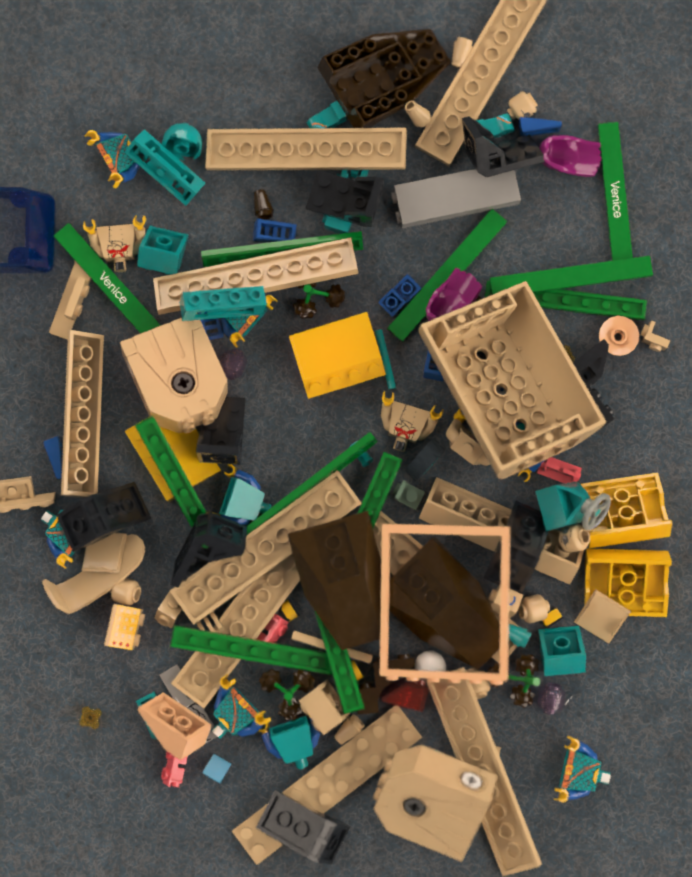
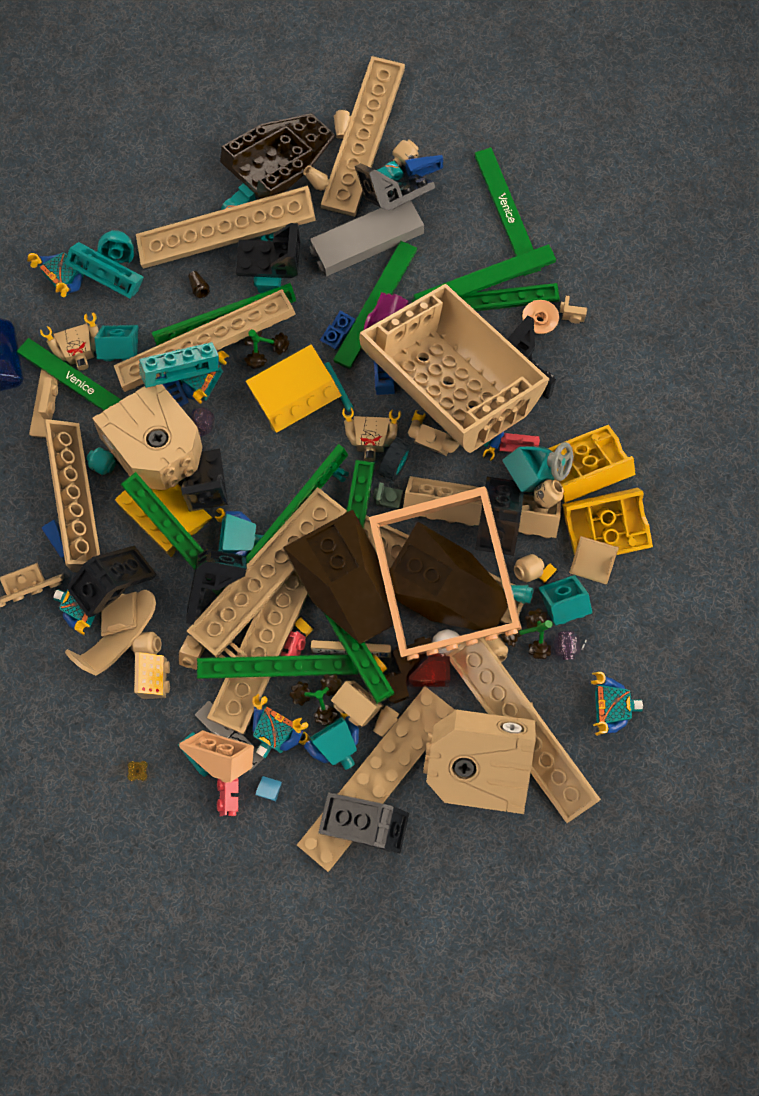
camera: 10 degrees left, 10 degrees down
(118, 381) = (101, 461): none -> teal head
(268, 223) = (211, 298): blue slope -> none
(514, 601) = (492, 565): tan brick -> none
(571, 155) = (458, 181): magenta hair -> none

